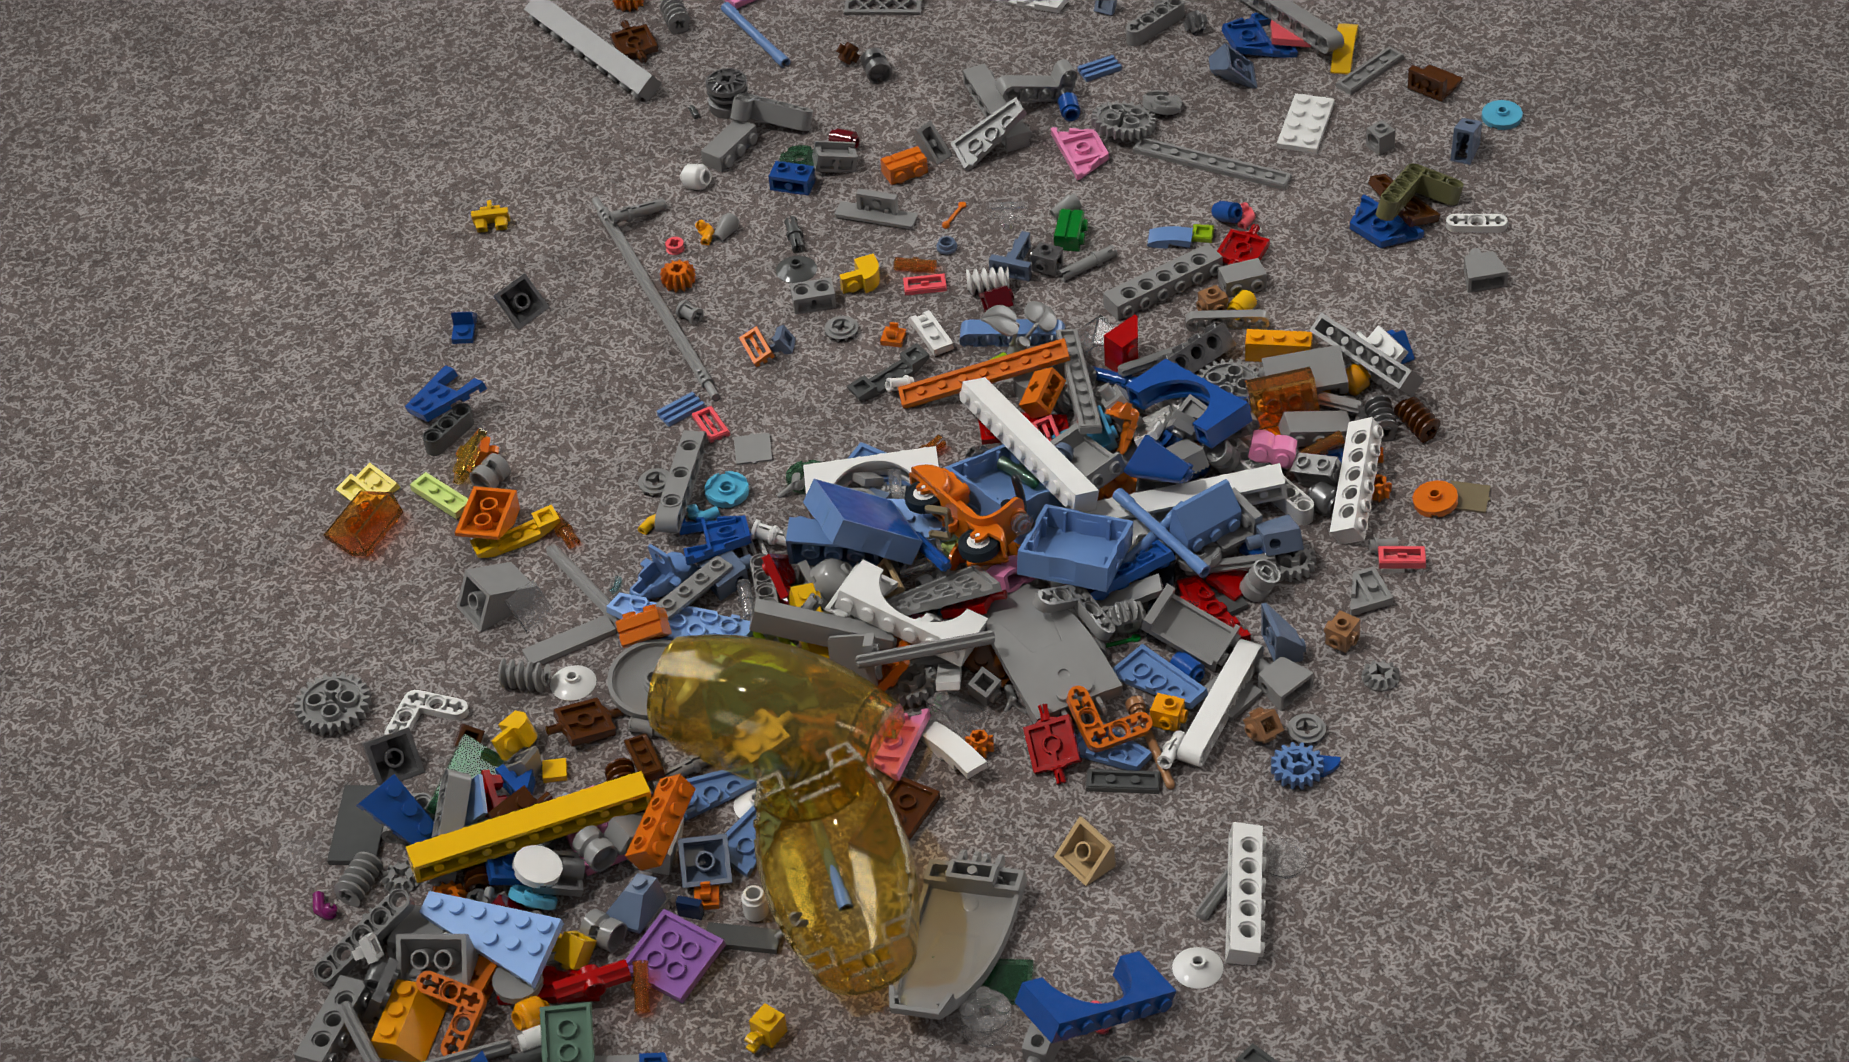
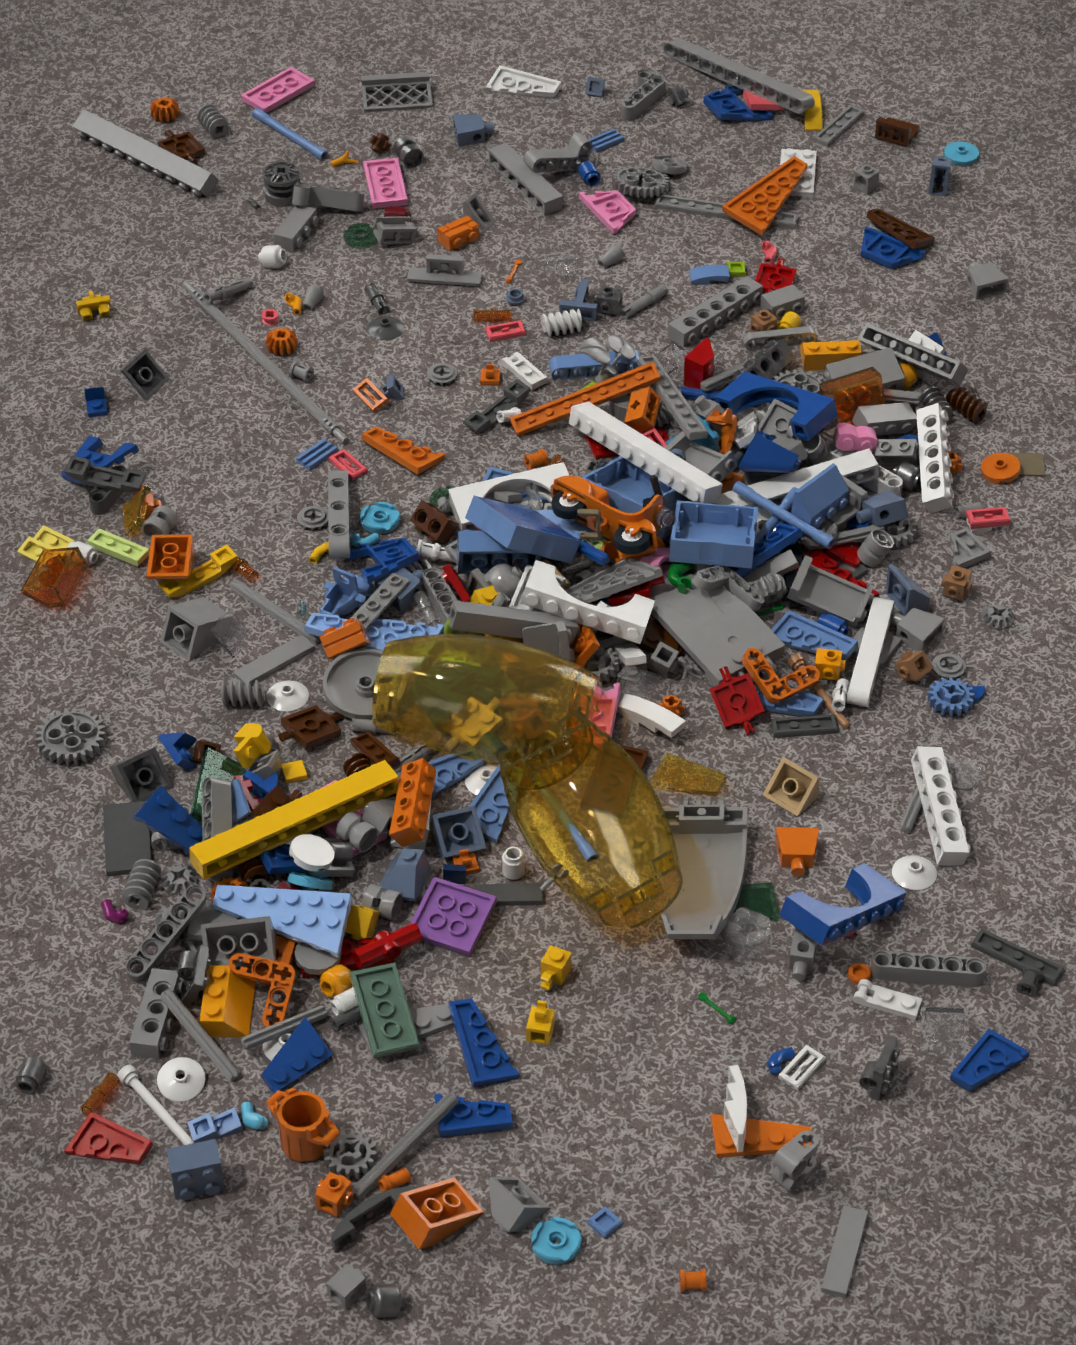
camera: 15 degrees left, 0 degrees up
(368, 948) = (176, 941): white tile -> none
(405, 497) = (89, 552): none -> white brick
(417, 708) = (150, 732): white beam -> none
(437, 731) = (177, 746): none -> blue slope
(441, 415) = (104, 478): none -> dark grey slope
(487, 895) = (270, 883): light grey hand -> none
(641, 986) = (432, 945): clear orange pin -> none
(752, 448) = (392, 482): light grey piece -> none
(772, 414) = (402, 450): none -> orange wing
(780, 500) = (435, 520): none -> reddish brown brick
(792, 178) = (360, 251): blue brick -> none
(805, 69) = (343, 160): none -> light orange bar
(813, 295) = (409, 348): light grey brick -> none
(841, 100) = (385, 183): none -> bright pink plate
(864, 276) = (449, 327): yellow brick -> none
(914, 438) = (536, 459): none -> orange bush
(925, 649) = (612, 630): light grey axle -> none
(952, 44) = (470, 129): none -> sand blue torso
(973, 826) = (685, 776): none -> clear yellow wing
(985, 135) = (524, 202): light grey wing -> none
(997, 296) = (574, 337): dark red brick -> none
(1013, 468) = (637, 478): pin -> none
(1022, 589) = (675, 576): none -> green piece
(1070, 229) = (622, 274): green brick -> none
(1072, 924) = (796, 848): none -> orange torso
(1181, 424) = (773, 425): light grey bracket -> none
(1227, 211) = (753, 249): blue brick -> none
(1232, 66) = (721, 130): sand blue slope -> none
(1252, 155) = (763, 200): none -> orange wing
(1323, 445) = (899, 430): clear orange pin -> none
(1419, 180) = (917, 212): olive beam -> none
(1492, 227) = (971, 238): white beam -> none

